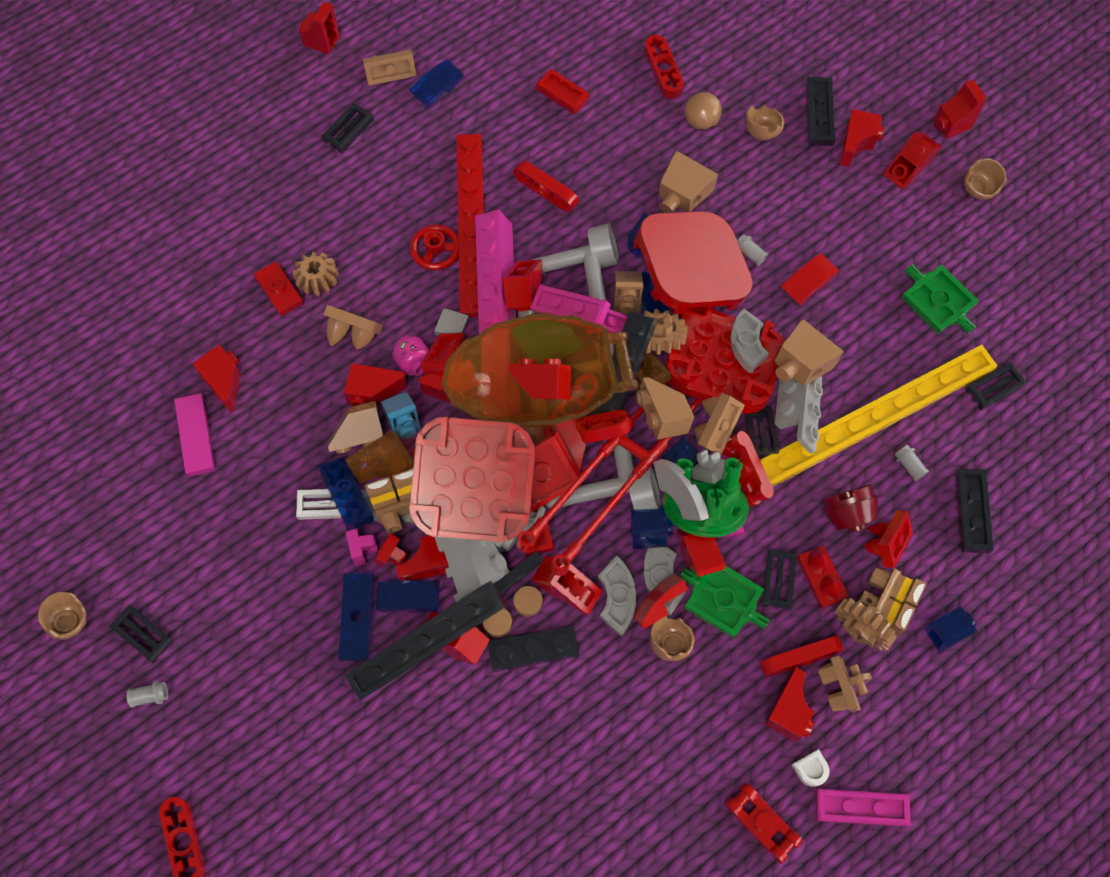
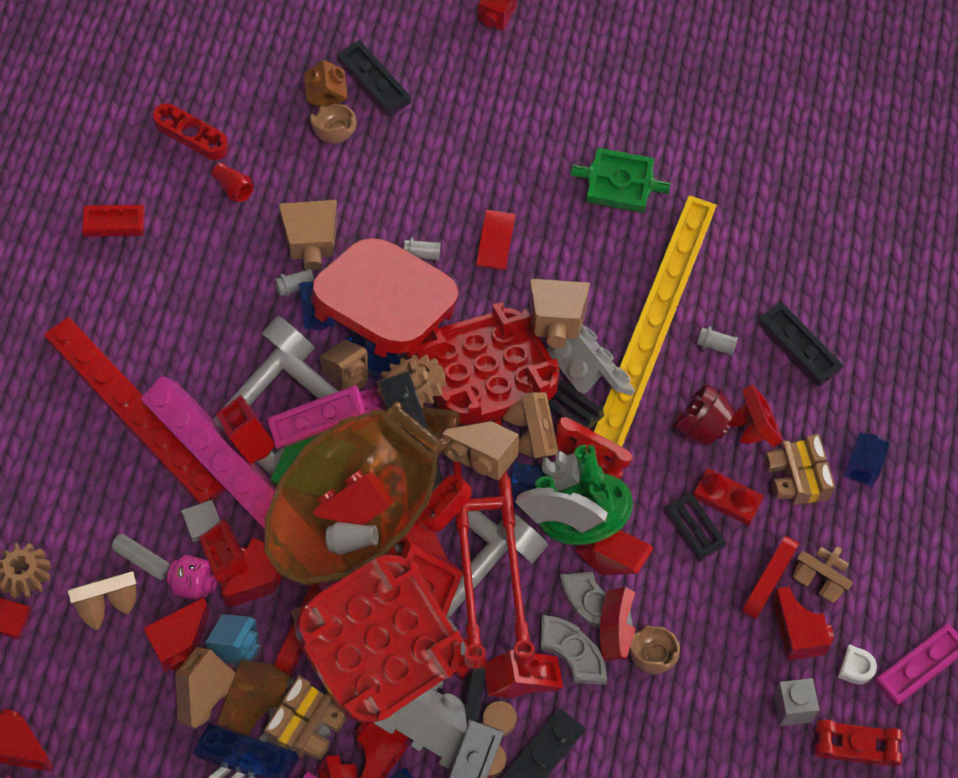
camera: 45 degrees left, 5 degrees down
(394, 317) = (141, 556): none -> light grey axle
(434, 235) = (113, 446): red piece -> none
(516, 399) = (350, 537): none -> light grey cone
(546, 186) = (178, 323): red beam -> none
(638, 208) = (290, 283): none -> light grey pin
(649, 528) = (553, 567): clear blue brick -> none
(662, 119) = (234, 183): none -> red cone
(703, 110) = (265, 149): medium nougat hair -> none
(724, 600) = (669, 581): green plate -> none
(741, 756) = (796, 702): none -> light grey brick
(746, 341) = (492, 336): light grey tile -> none
(780, 92) = (325, 84): none -> dark orange brick
(861, 134) = (428, 74): red arch -> none
(865, 624) = (801, 507): medium nougat gear -> none
(912, 159) = (493, 70): red slope -> none
(979, 396) = (720, 242): black tile -> none
(984, 179) = (570, 46): medium nougat hair -> none

